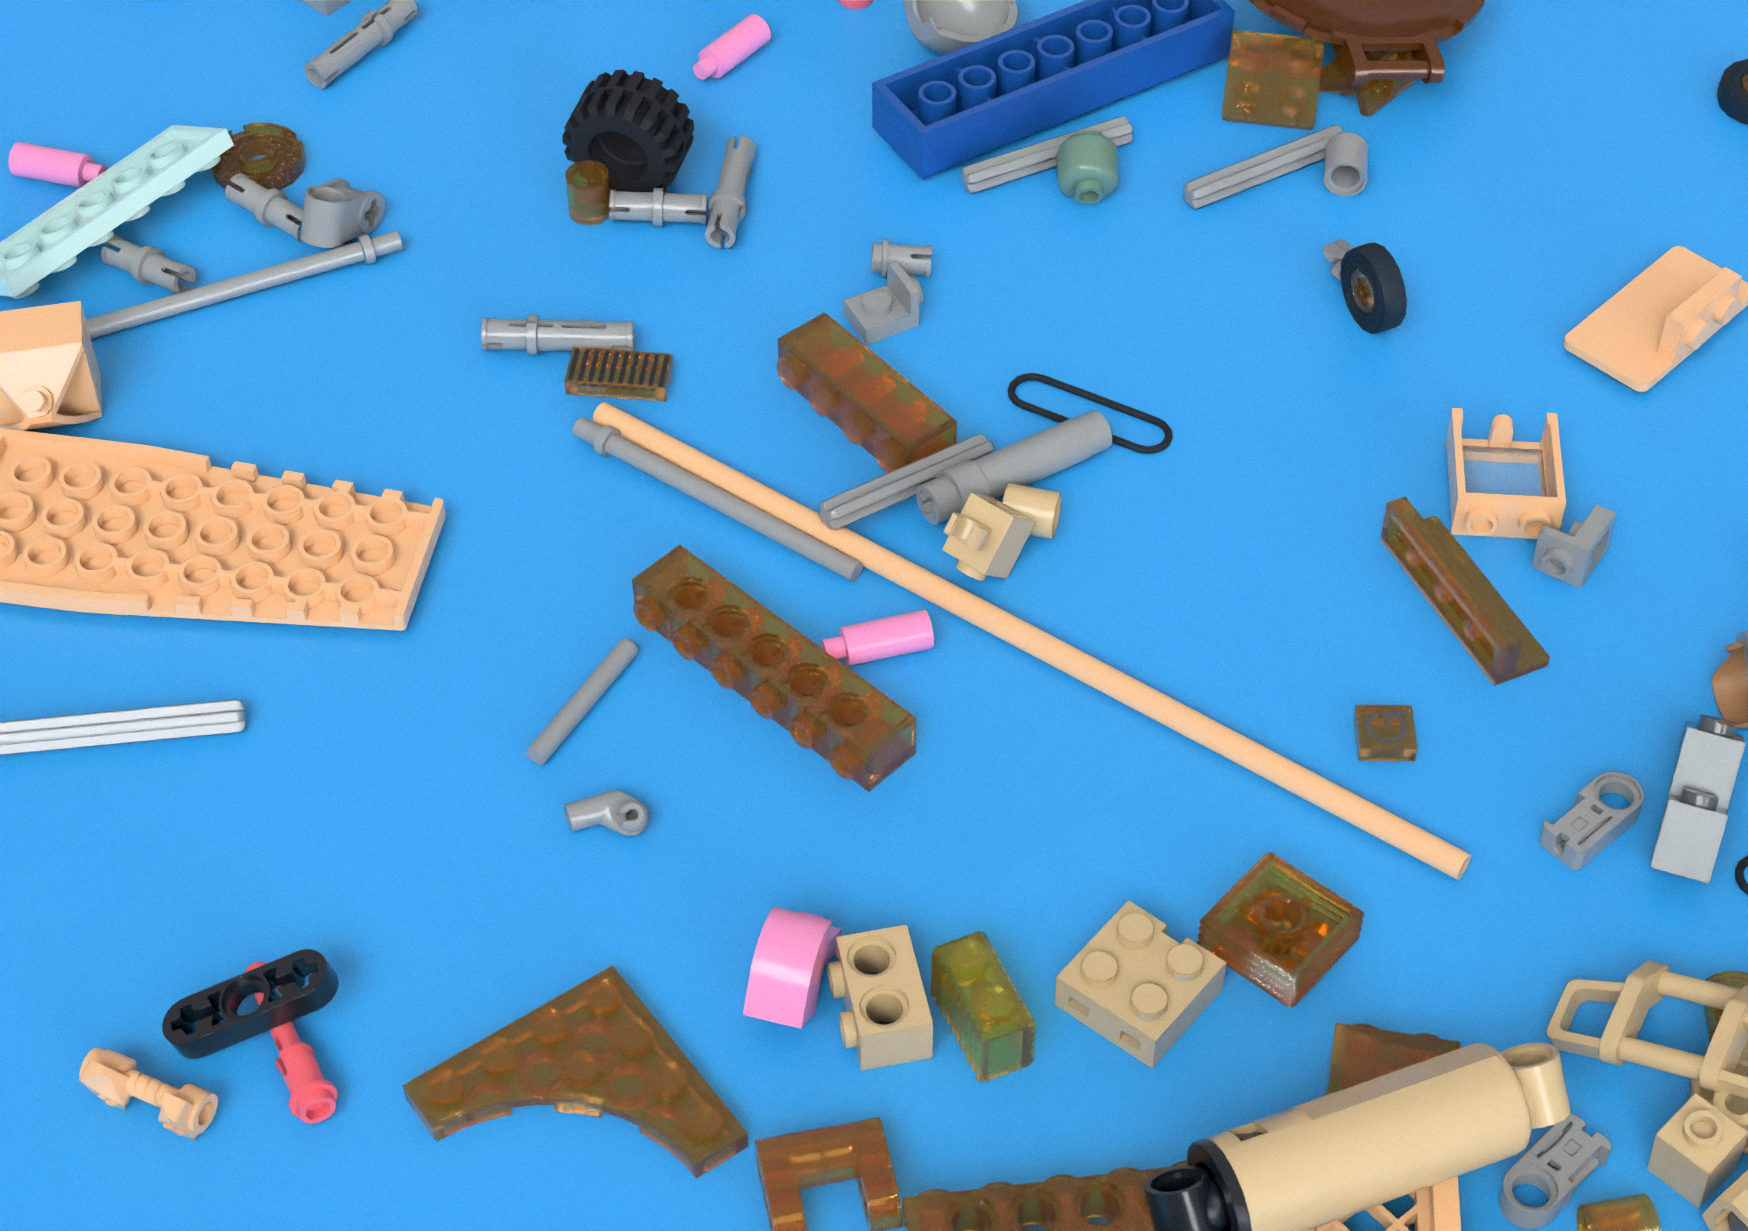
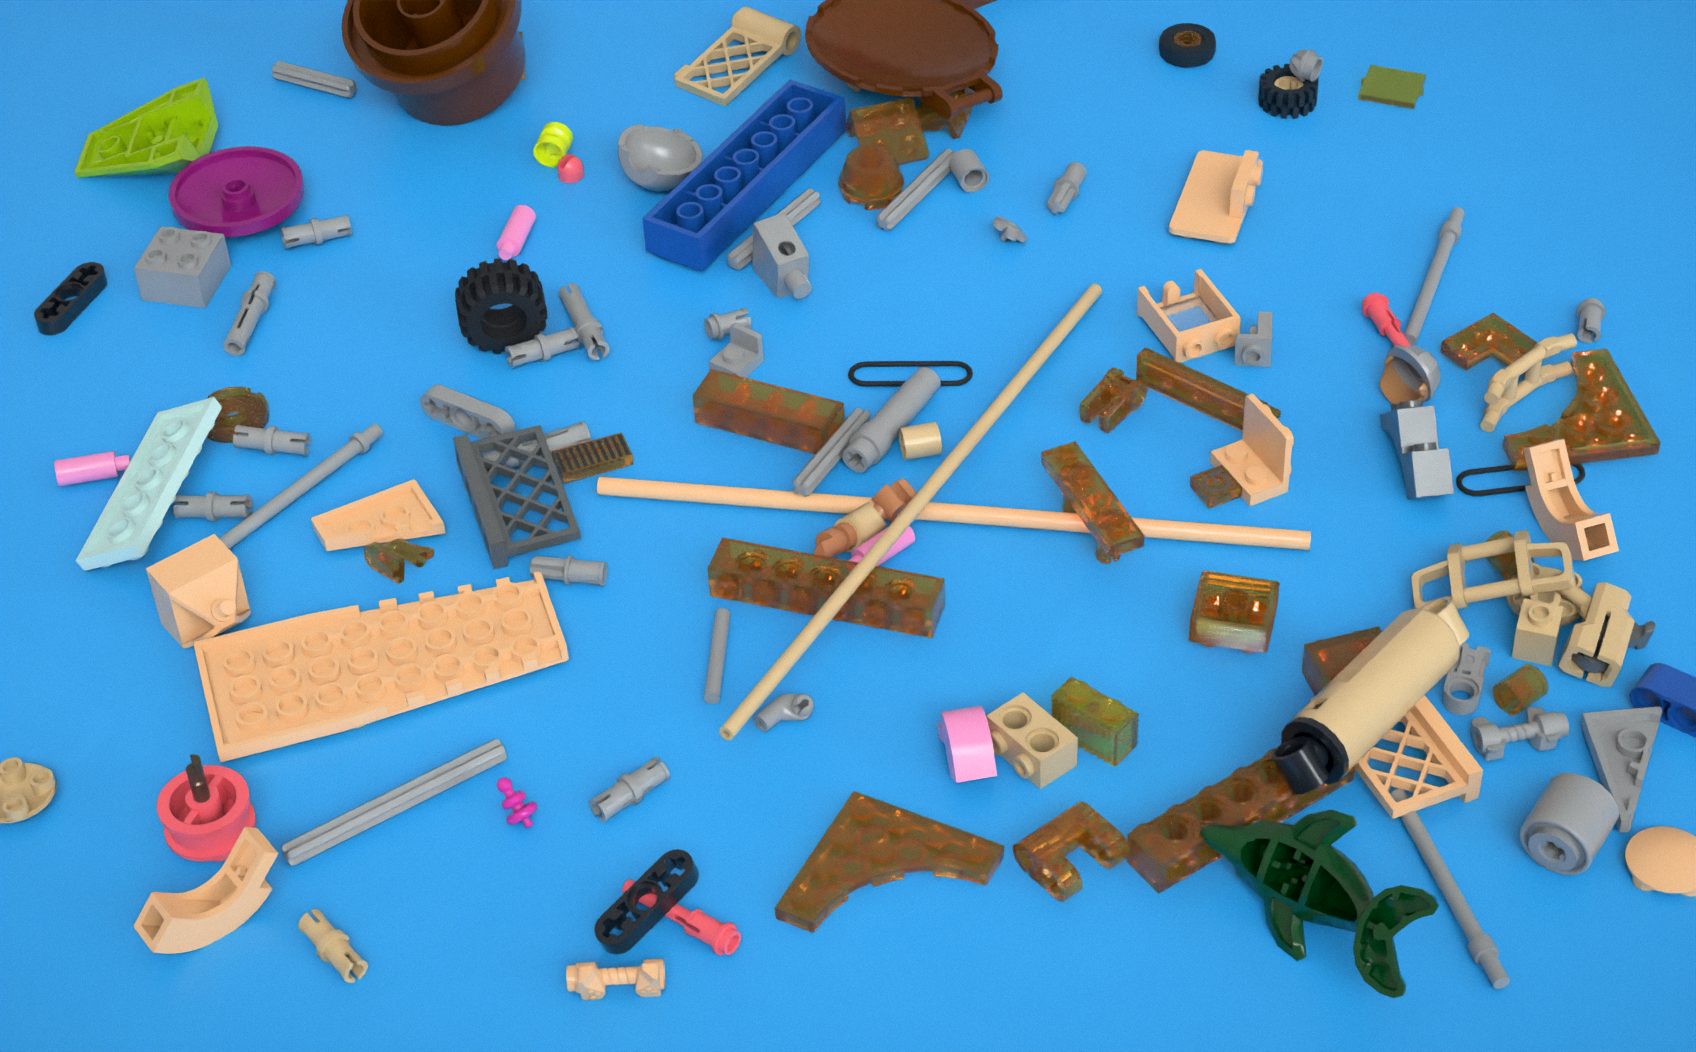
camera: 25 degrees left, 5 degrees down
(198, 794) = (514, 800): none -> dark pink hair
(286, 412) = (391, 557): none -> clear orange piece
(317, 355) = (379, 518): none -> light nougat wing
(339, 213) = (327, 426): light grey piece -> none
(348, 837) = (629, 789): none -> light grey pin
(441, 384) = (487, 508): none -> dark grey fence
(486, 512) = (570, 570): none -> light grey axle
(510, 260) = (449, 407): none -> light grey beam
(588, 192) = (489, 354): clear orange beam -> none
(608, 442) = (618, 500): light grey bar -> none
(871, 597) = (865, 521): none -> nougat piece
(928, 609) = (905, 518): none -> tan piece
(986, 537) = (910, 461): tan brick -> none
(1017, 215) = (780, 257): none -> light grey torso
(1087, 165) = (811, 224): sand green head -> none
(1139, 984) = (1173, 674): tan piece -> none
(1182, 688) = (1093, 501): none -> clear orange plate
(1210, 128) = (870, 177): none -> clear orange cone
(1323, 552) = (1113, 400): none -> clear orange piece
(1373, 288) = (1041, 235): black bush -> none
(1461, 233) = (1066, 187): none -> light grey axle
(1461, 718) = (1262, 457): none -> light nougat bracket
(1591, 823) = (1364, 490): light grey piece -> none

